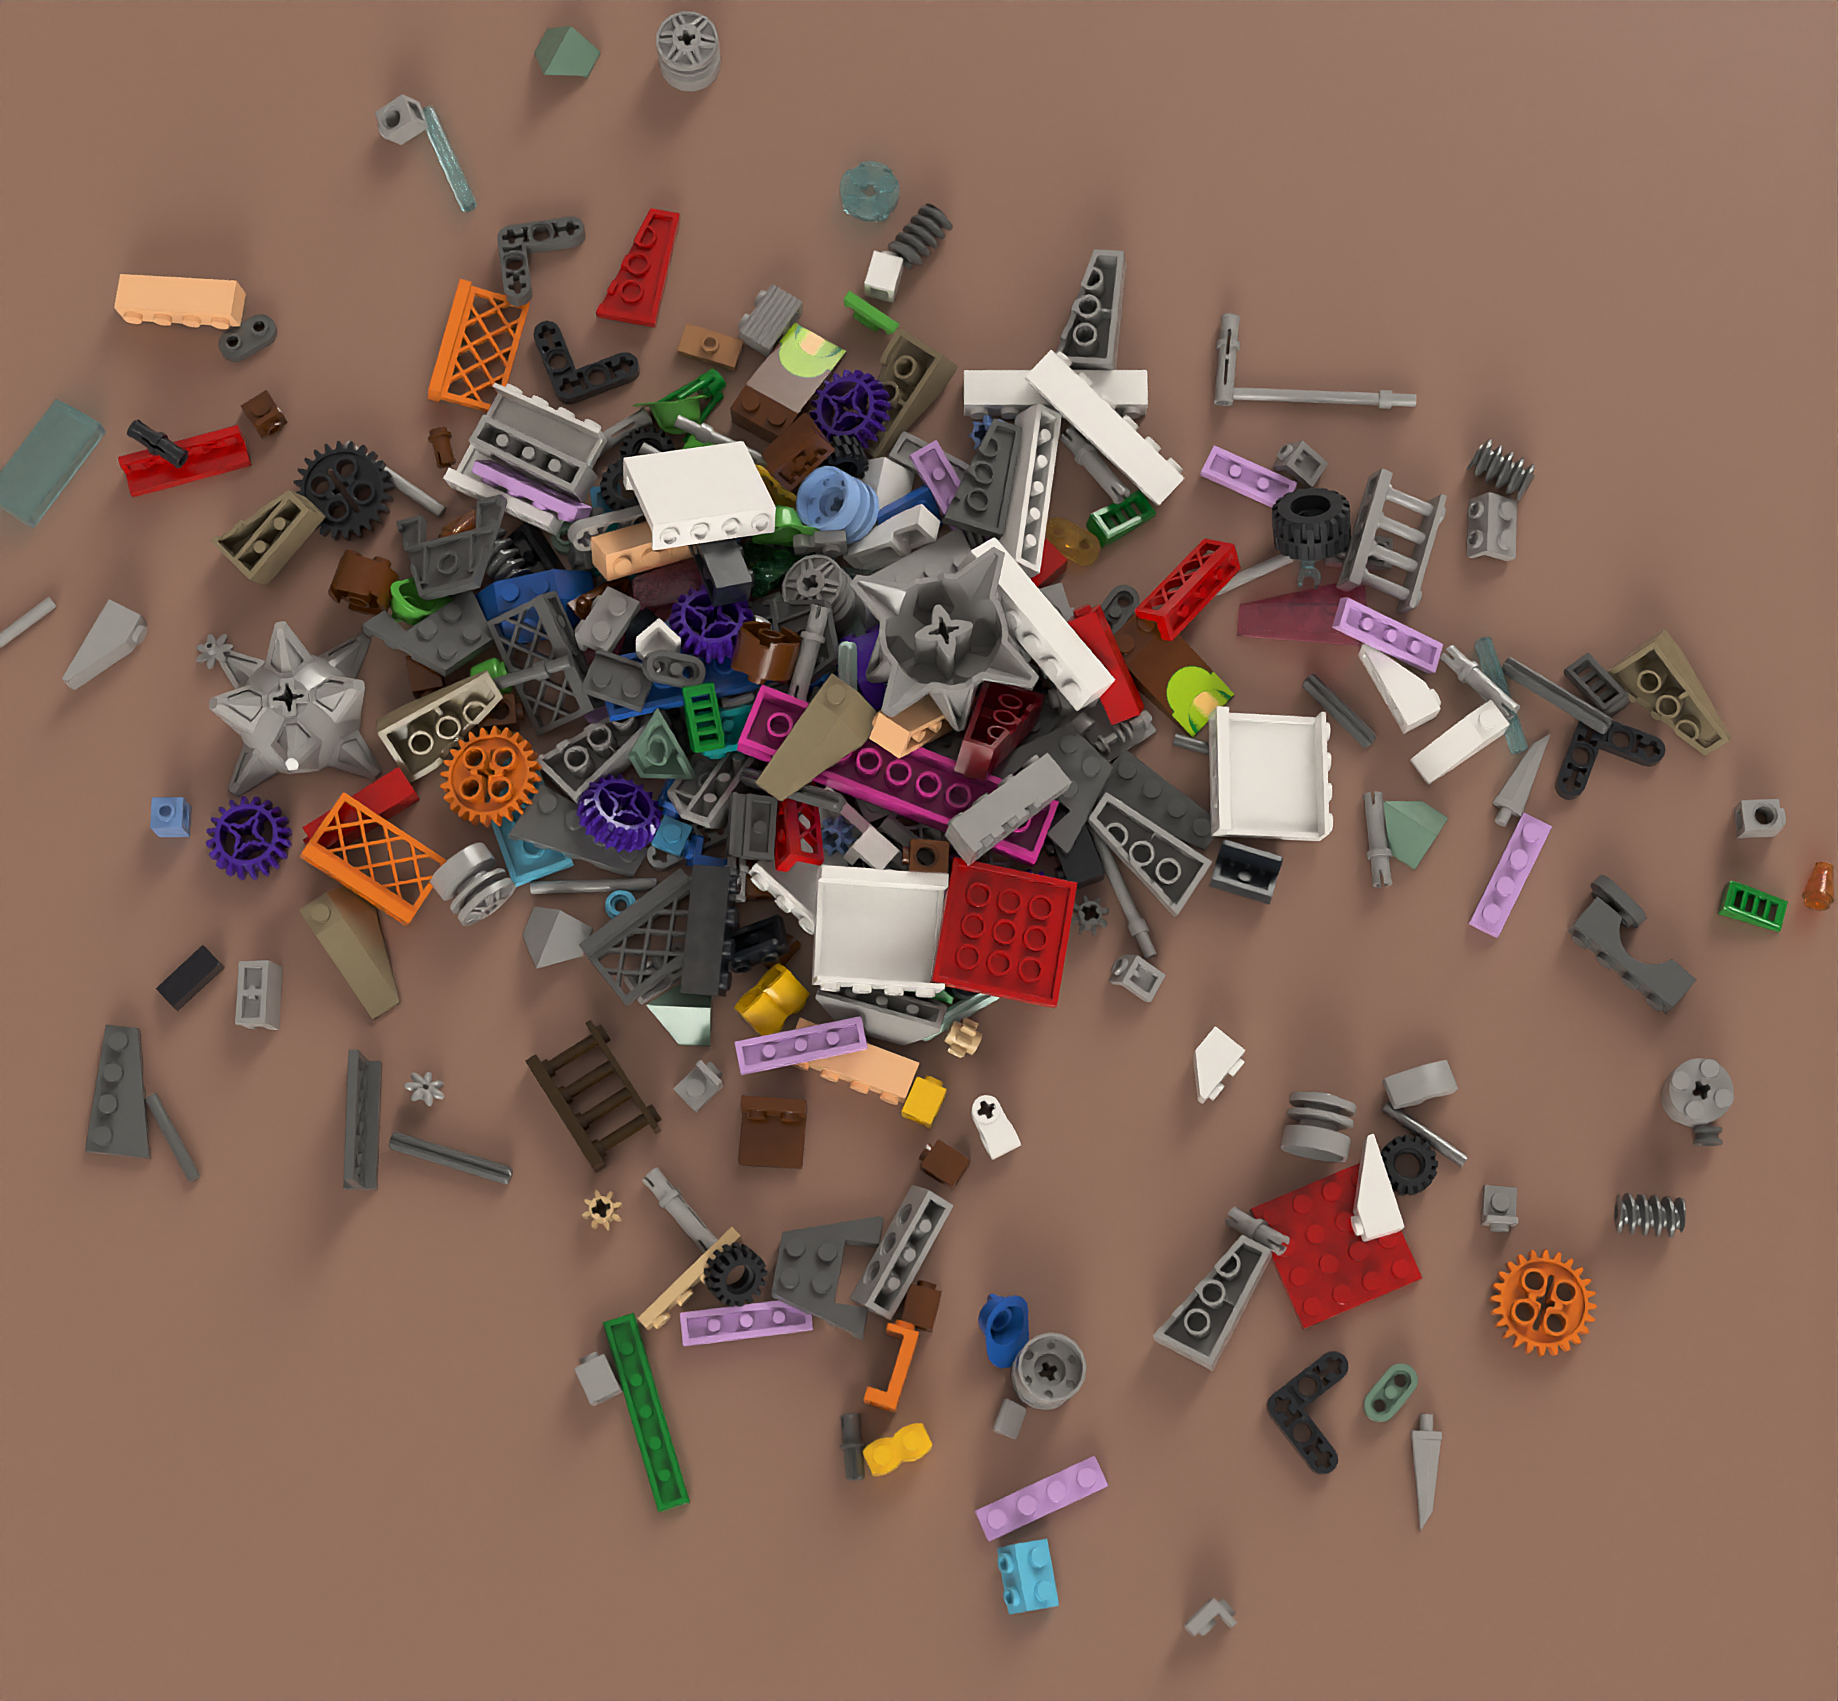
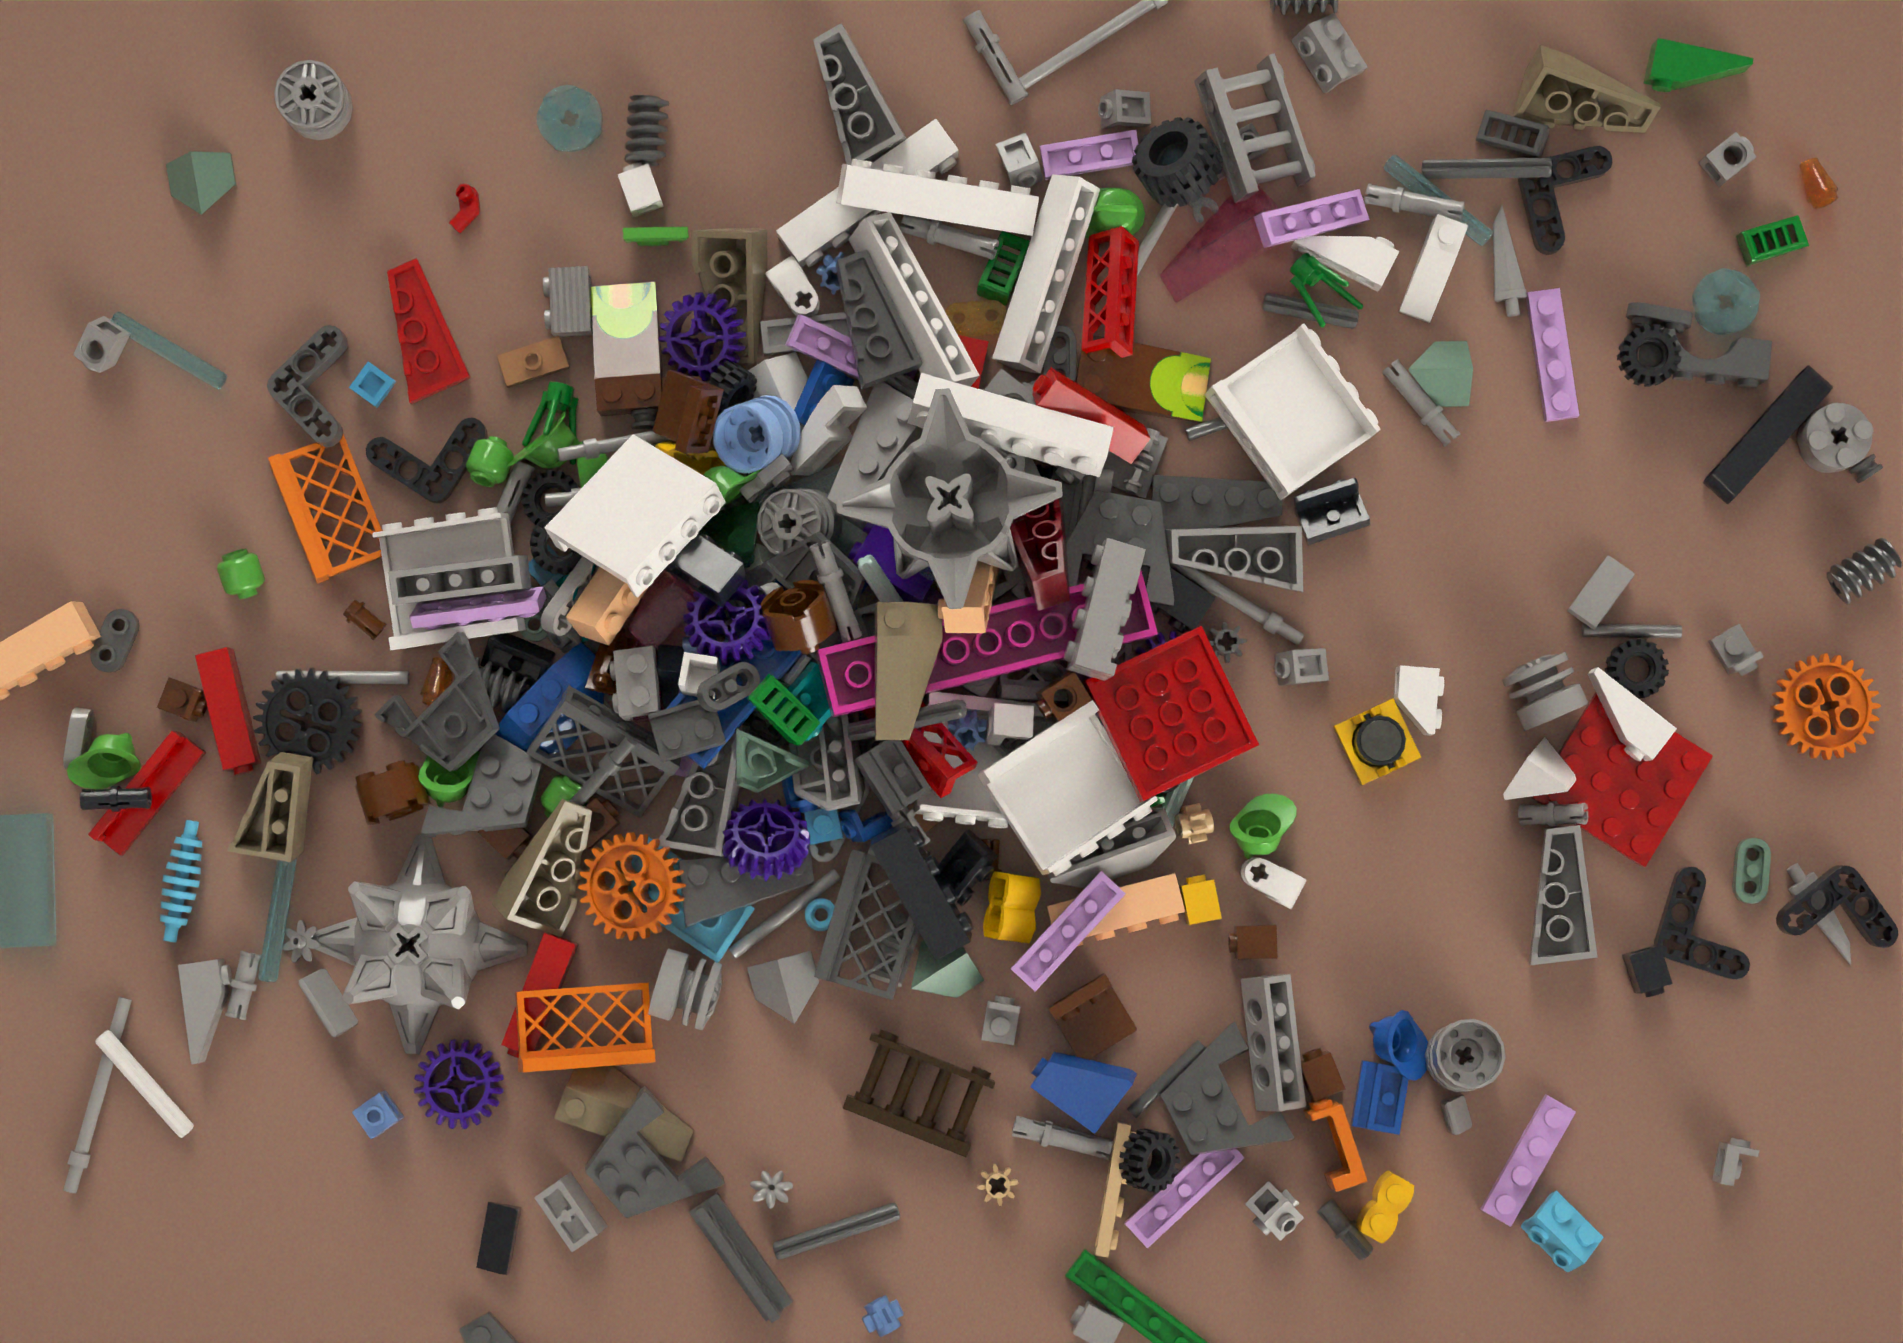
camera: 40 degrees left, 10 degrees up
(17, 672) = (144, 1083): none -> white axle
(146, 651) = (243, 985): none -> light grey pin
(160, 542) = (181, 880): none -> medium azure piece
(166, 388) = (78, 734): none -> light grey beam
(173, 415) = (105, 763): none -> bright green piece
(196, 716) = (328, 1002): none -> light grey slope
(209, 621) = (277, 921): none -> clear light blue axle
(291, 442) = (228, 710): none -> red brick
(329, 997) = (634, 1172): none -> dark grey wing
(376, 350) = (240, 573): none -> bright green head
(436, 1248) = (882, 1316): none -> medium blue gear
(578, 282) = (372, 384): none -> dark azure plate
(621, 394) = (489, 461): none -> bright green head
(724, 1180) = (1082, 1087): none -> blue slope
(746, 205) = (469, 207): none -> red arm
(761, 441) = (644, 418): none -> dark grey bush
(779, 1227) = (1166, 1079): none -> dark grey bar
(805, 1387) = (1274, 1211): none -> light grey brick
(948, 423) = (792, 284): none -> white piece
(956, 1360) = (1379, 1098): none -> blue plate
(1015, 1075) = (1263, 823): none -> bright green piece
(1149, 541) = (1046, 273): none -> white brick
(1156, 1077) = (1377, 741): none -> piece
(1190, 447) = (1020, 161): none -> light grey bracket
(1232, 526) = (1115, 209): none -> bright green piece
(1247, 1412) = (1647, 970): none -> black brick
(1269, 1188) = (1541, 774): none -> white slope
(1359, 680) = (1310, 271): none -> green plant
(1445, 1460) = (1835, 896): none -> black beam
(1580, 938) = (1657, 337): none -> black tyre
(1643, 1054) = (1767, 434): none -> black beam
(1674, 945) = (1744, 299): none -> clear light blue plate
(1774, 725) = (1682, 65): none -> green slope

